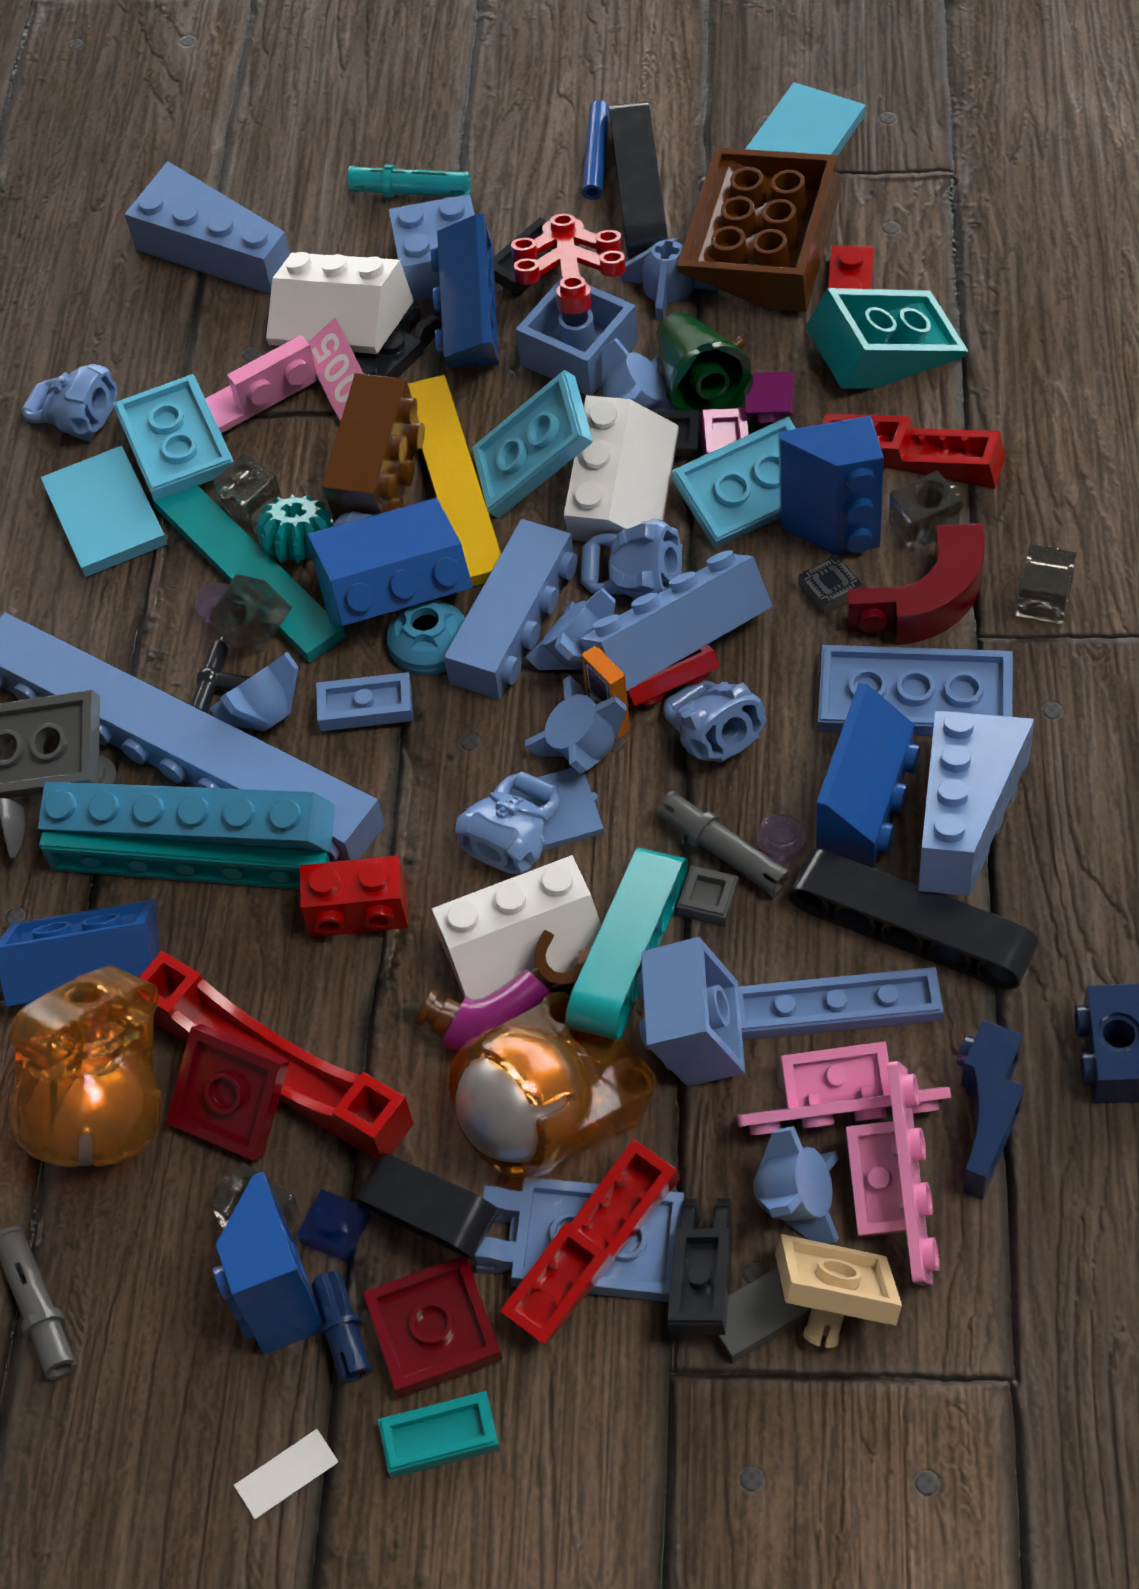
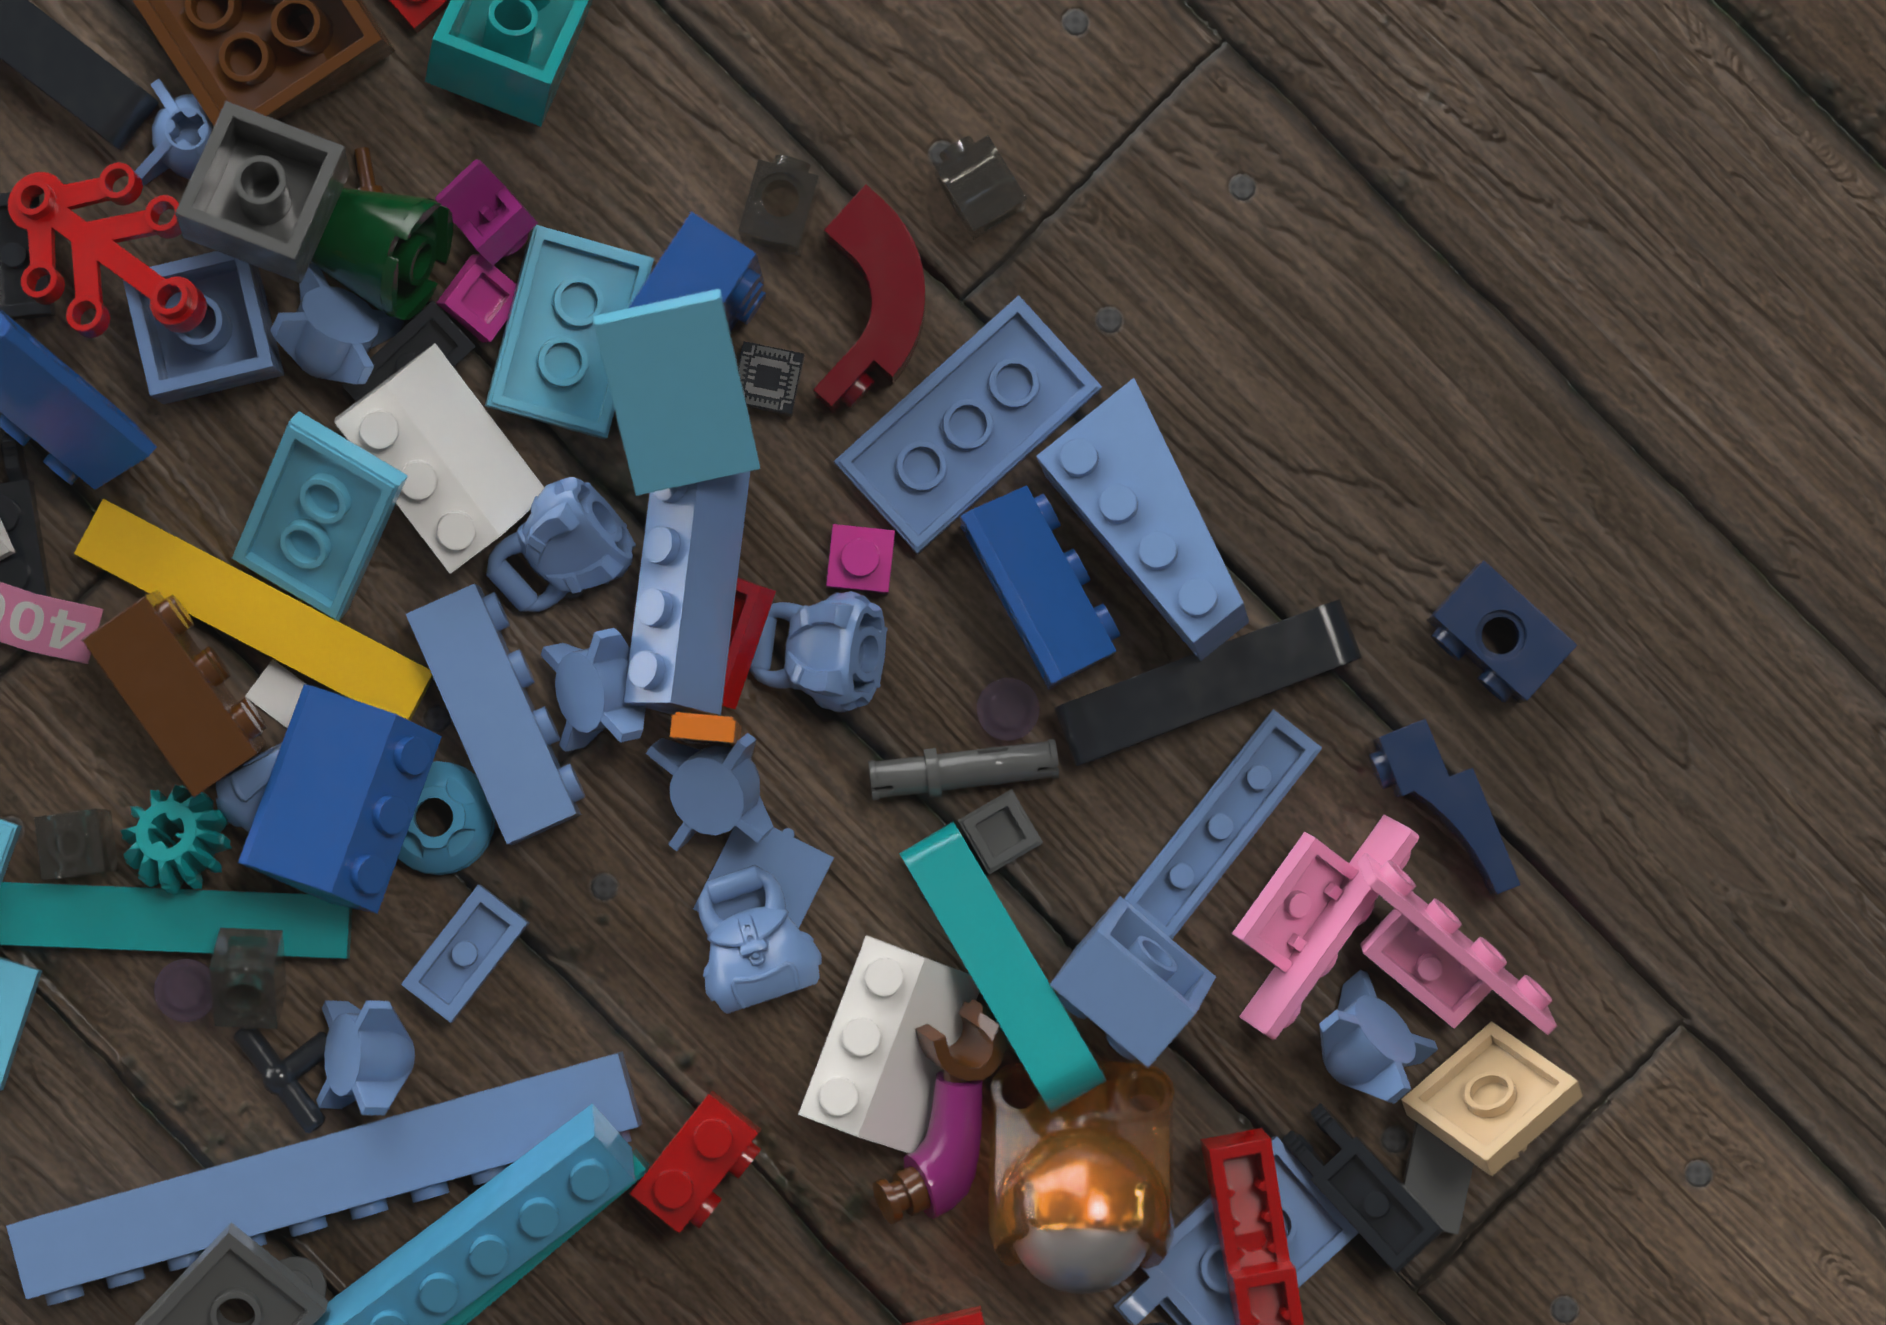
camera: 55 degrees left, 30 degrees up
(669, 276) = (263, 192): none -> dark grey brick
(770, 495) = (677, 392): none -> medium azure tile
(786, 703) = (860, 559): none -> dark pink plate
(956, 454) = (678, 132): red slope -> none

